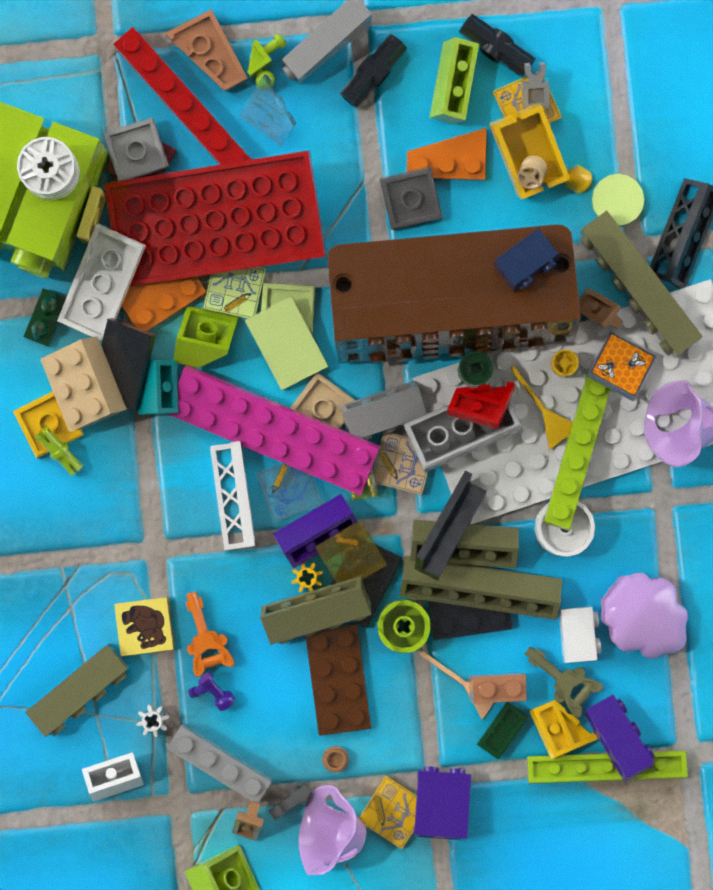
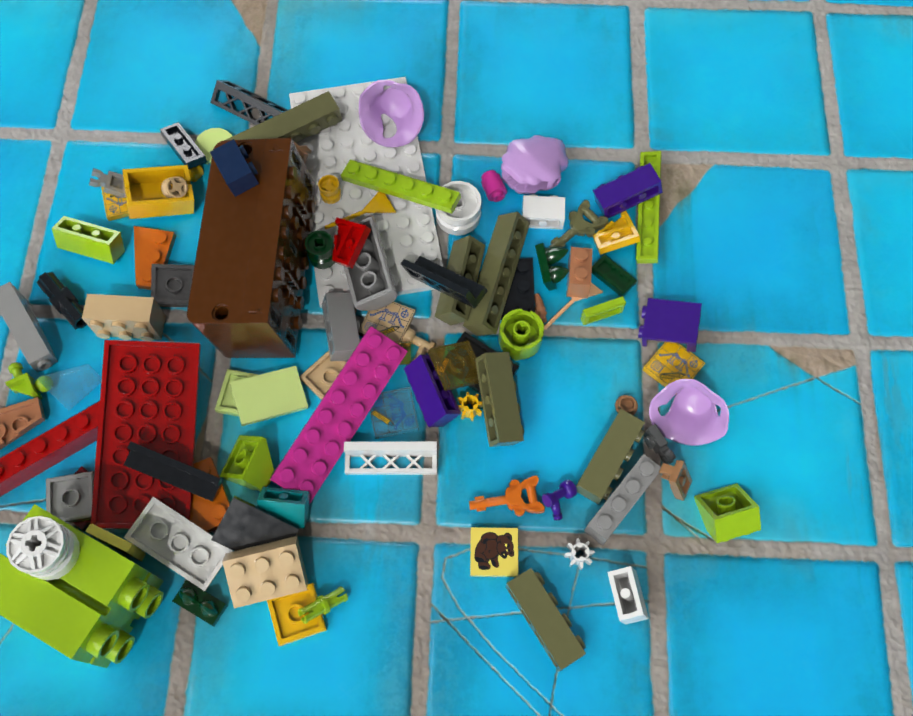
camera: 80 degrees left, 20 degrees down
(175, 260) = (172, 472): none -> black fence
(235, 292) = (216, 433): yellowish green tile -> none
(268, 744) = (609, 457): none -> olive brick
(338, 680) = (560, 395): reddish brown plate -> none
(354, 153) = (124, 317): none -> tan brick
(376, 513) = (424, 346): none -> tan piece
(444, 645) = (540, 308): none -> nougat piece
(451, 721) = (603, 310): none -> lime tile
(496, 45) = (73, 207): black piece -> none
(512, 645) = (547, 257): none -> dark green tile
(607, 161) = (183, 145): none -> plate
(607, 567) = (493, 186): none -> dark pink brick
(621, 366) = (340, 151): tile -> none

